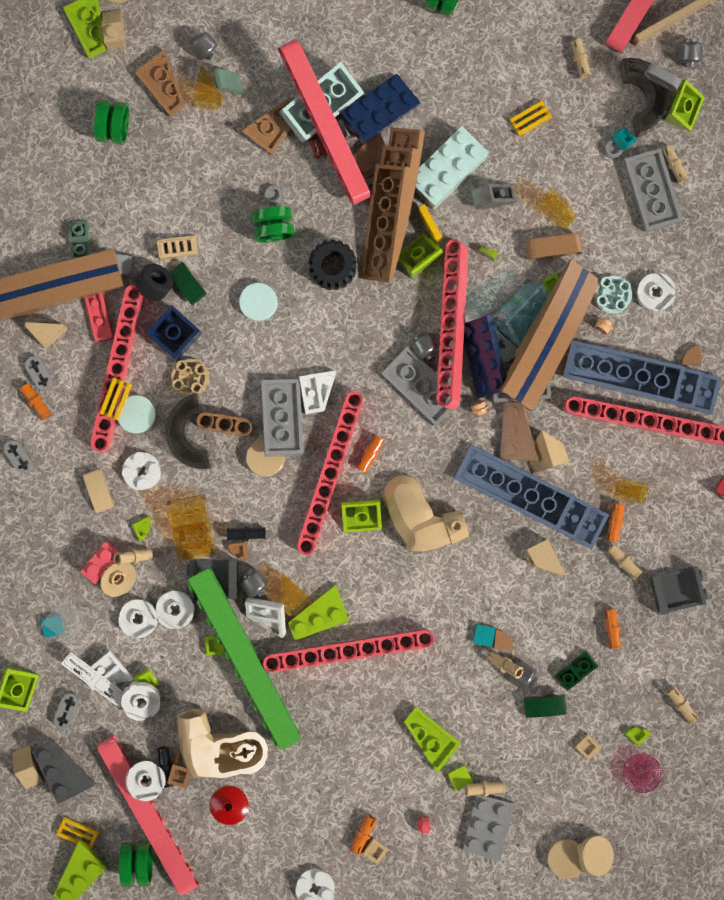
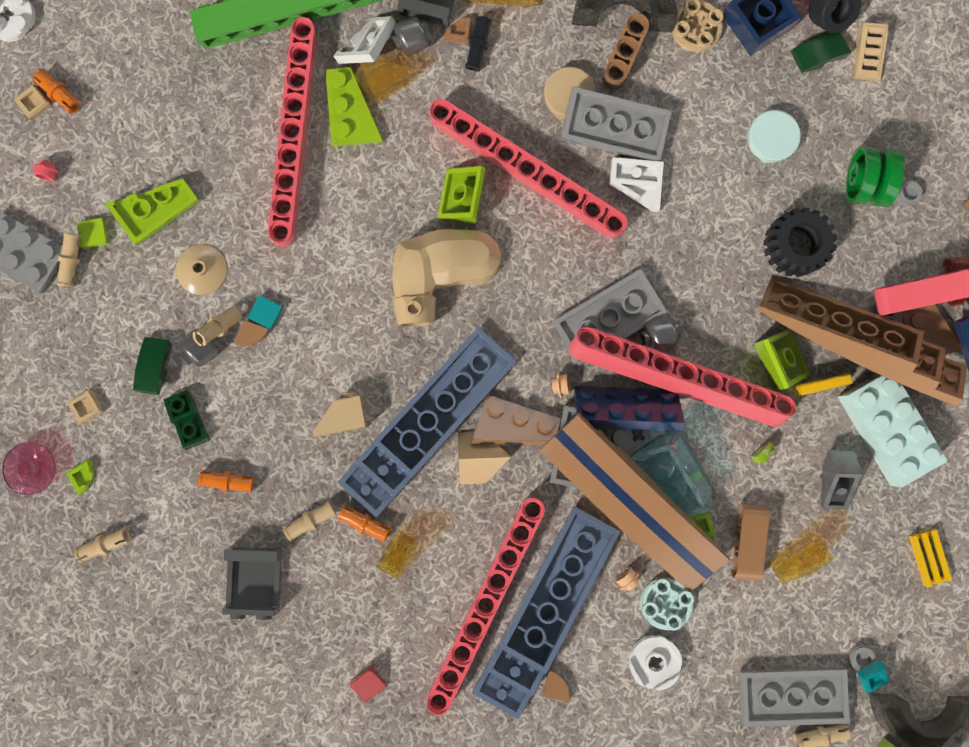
camera: 100 degrees right, 0 degrees up
(370, 454) = (538, 228): orange pin -> none
(457, 684) = (209, 278): none -> tan dish

